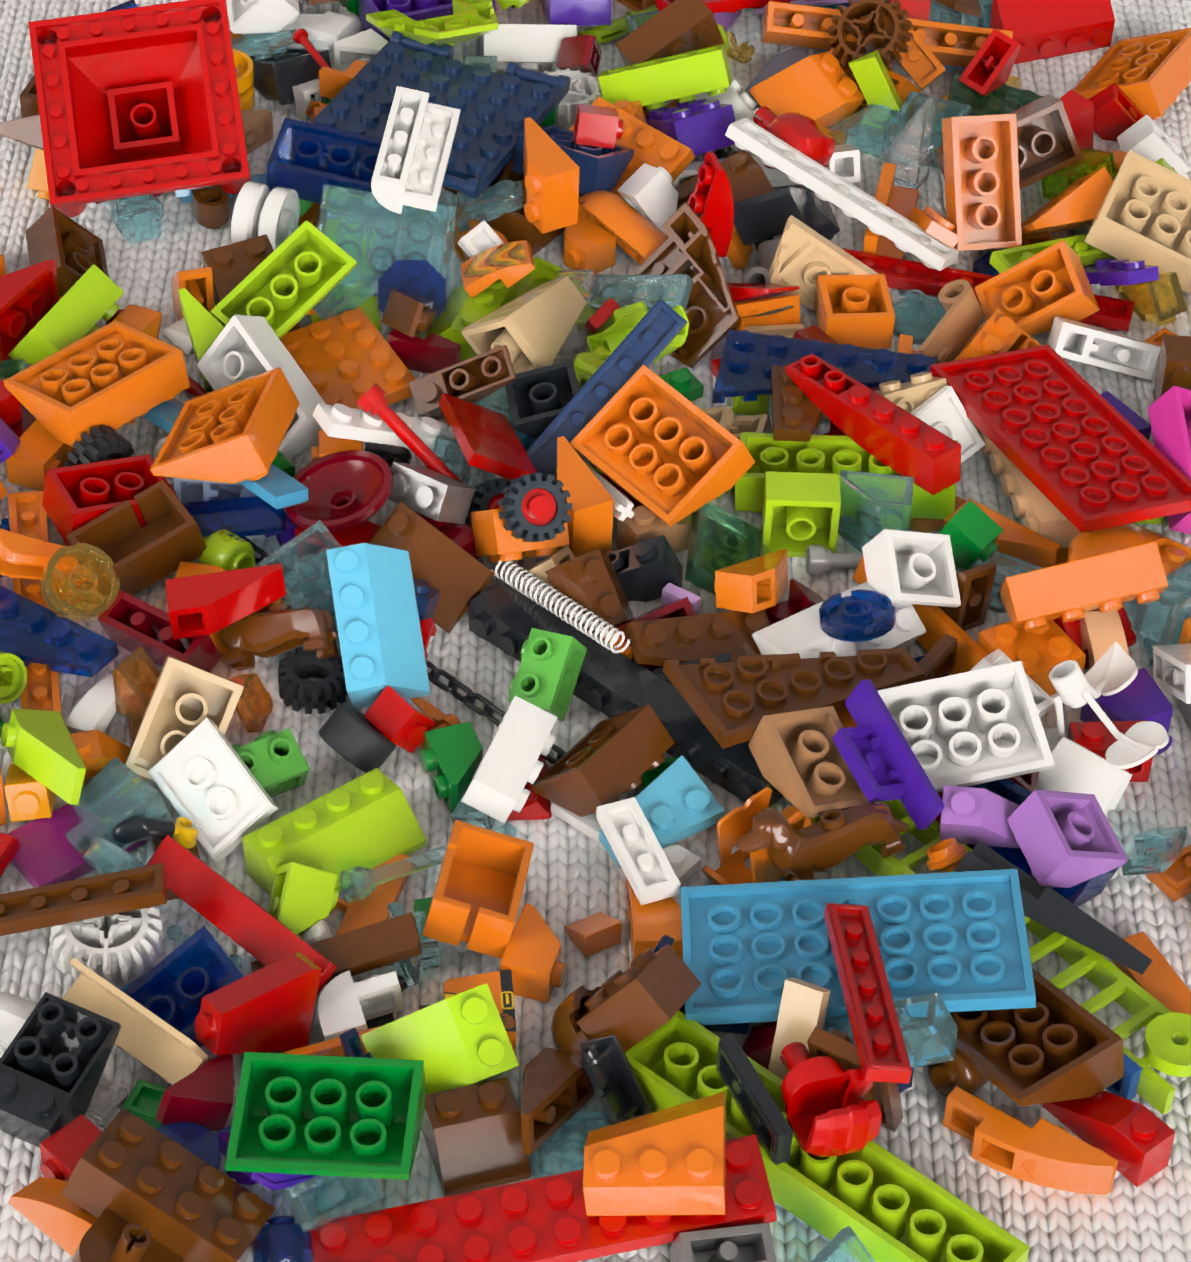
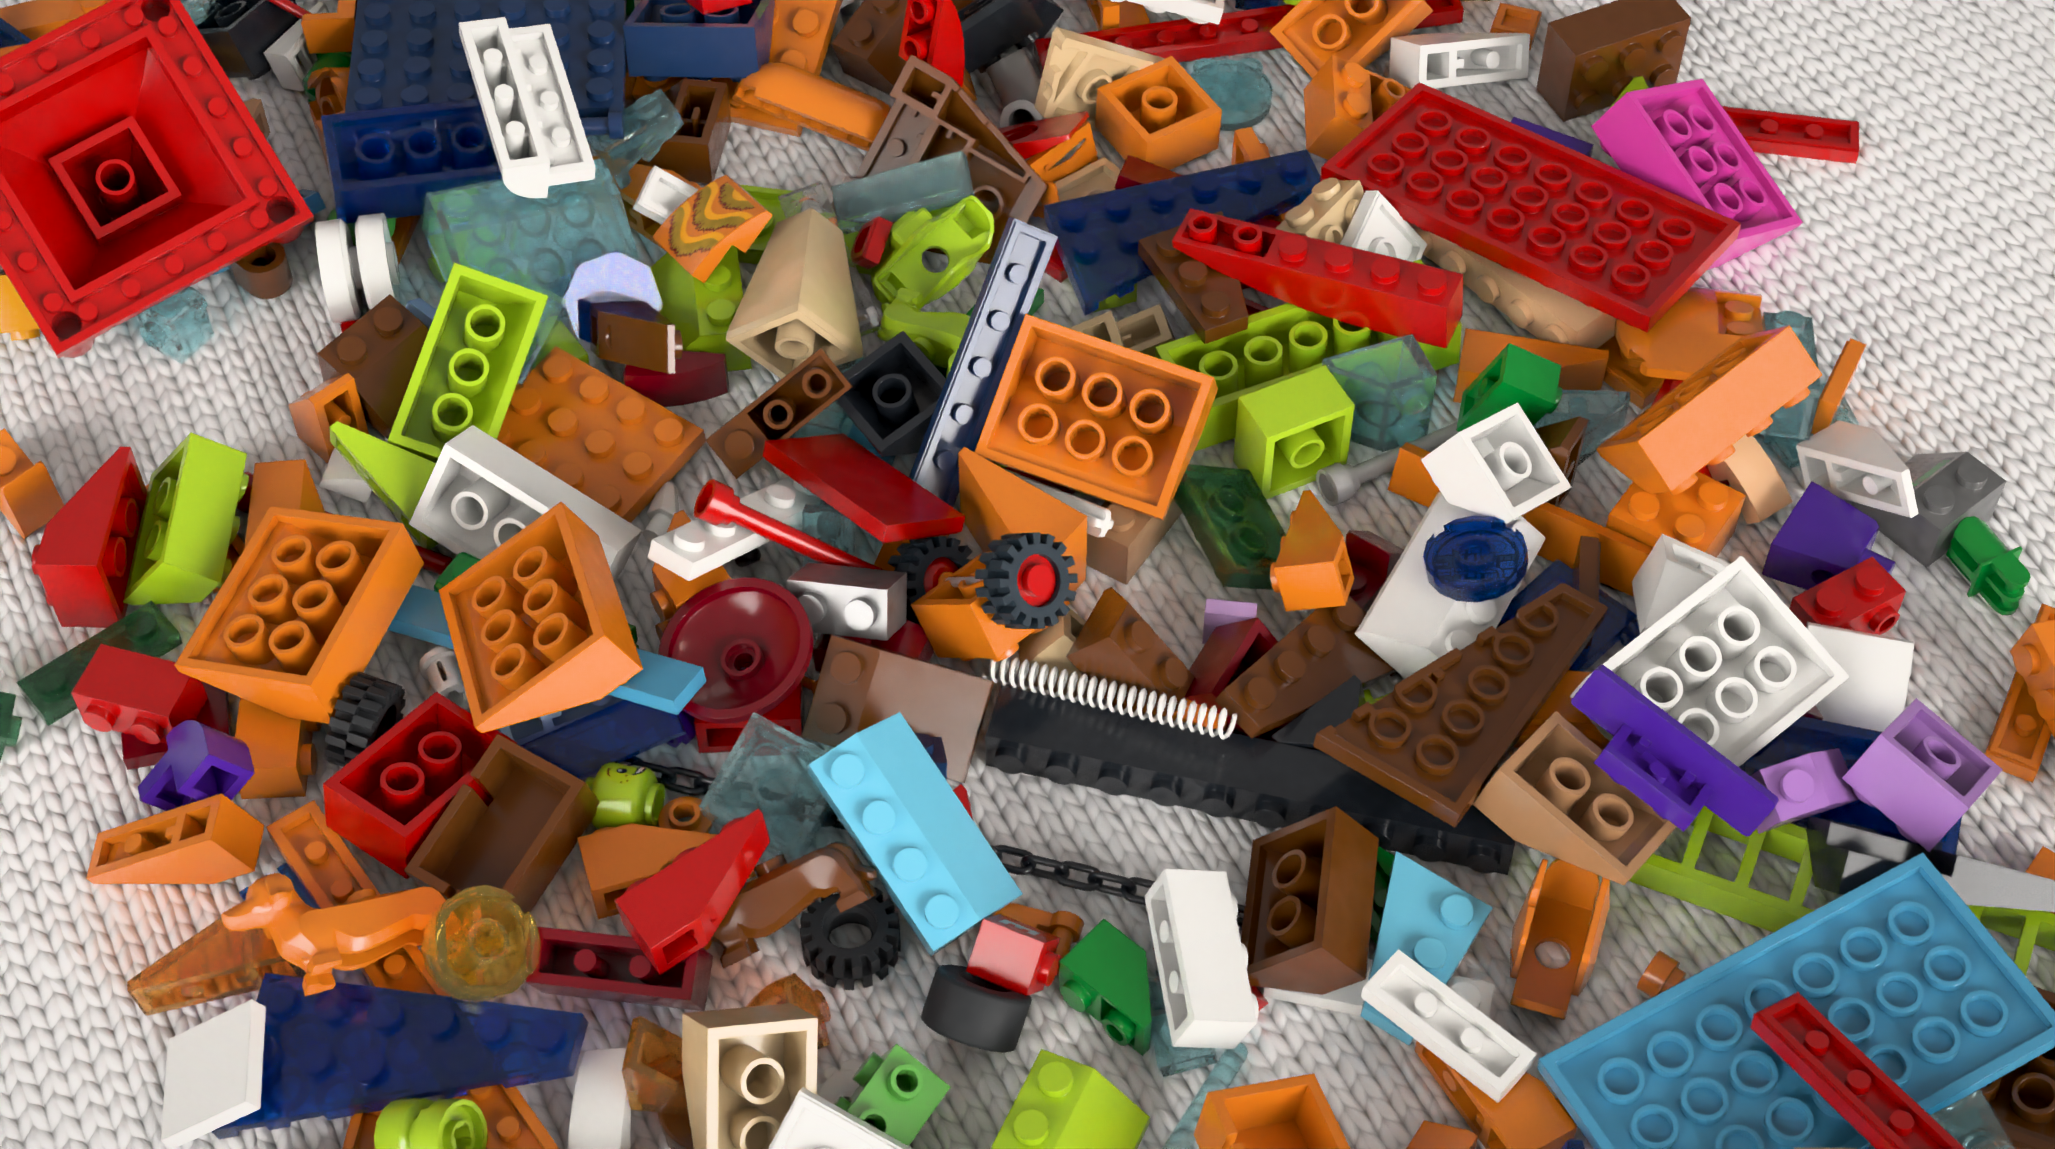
camera: 25 degrees left, 10 degrees up
(67, 243) = (108, 408): reddish brown slope -> none
(548, 671) = (1151, 804): bright green brick -> none
(549, 181) = (704, 78): orange slope -> none
(588, 246) = (773, 143): orange slope -> none
(646, 569) = (1157, 585): black slope -> none
(651, 194) = (830, 49): white slope -> none
(825, 842) = (1655, 906): reddish brown animal -> none
(945, 855) = (1797, 857): orange plate -> none
(957, 325) = (1288, 80): medium nougat door -> none
(1106, 677) = (1803, 513): white plant -> none
(1155, 850) = (1983, 721): clear light blue slope -> none

